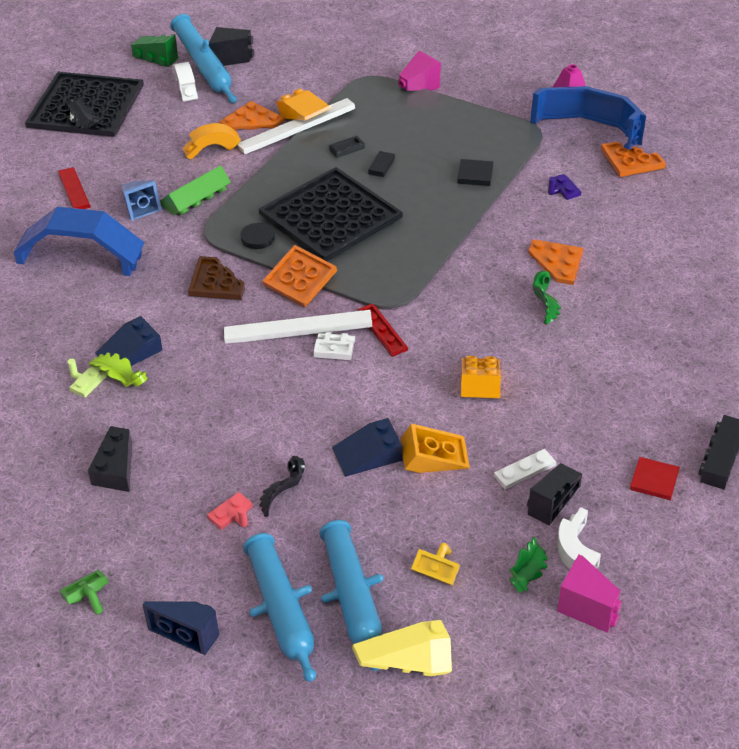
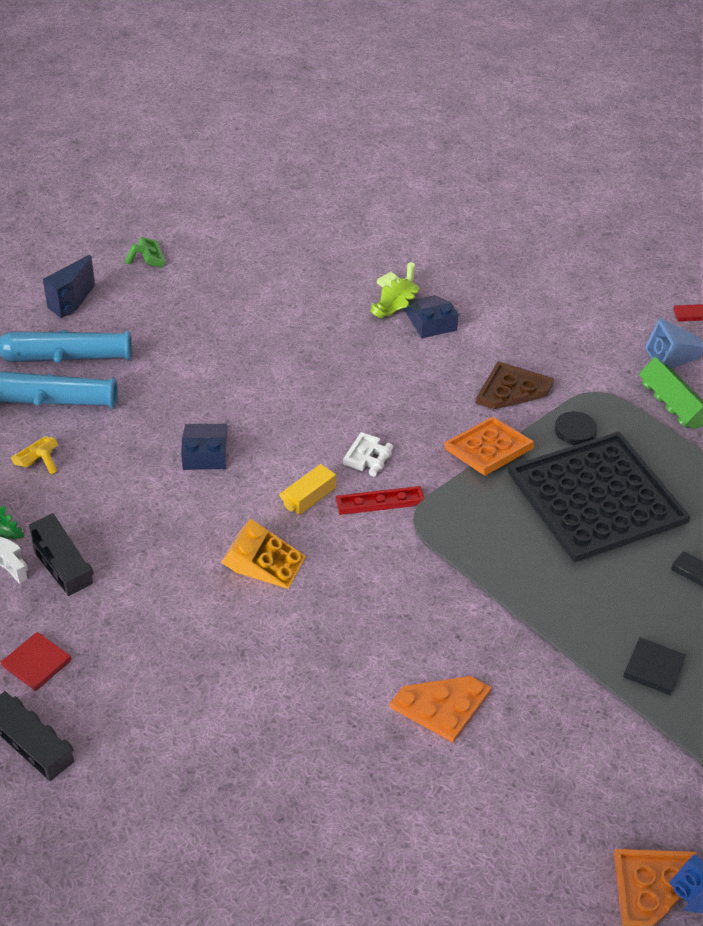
camera: 105 degrees right, 0 degrees up
(84, 224) = (582, 291): blue panel -> none
(113, 461) = (278, 281): black wedge -> none
(231, 510) = (183, 342): coral plate -> none
(296, 468) = (197, 381): black plant -> none
(298, 326) = (408, 435): white tile -> none
(395, 366) = (309, 489): none -> yellow brick
(433, 450) = (173, 487): light orange slope -> none
(524, 469) = (114, 556): white plate -> none
(540, 284) = (367, 659): green plant -> none
(563, 185) = (602, 770): dark purple plate -> none

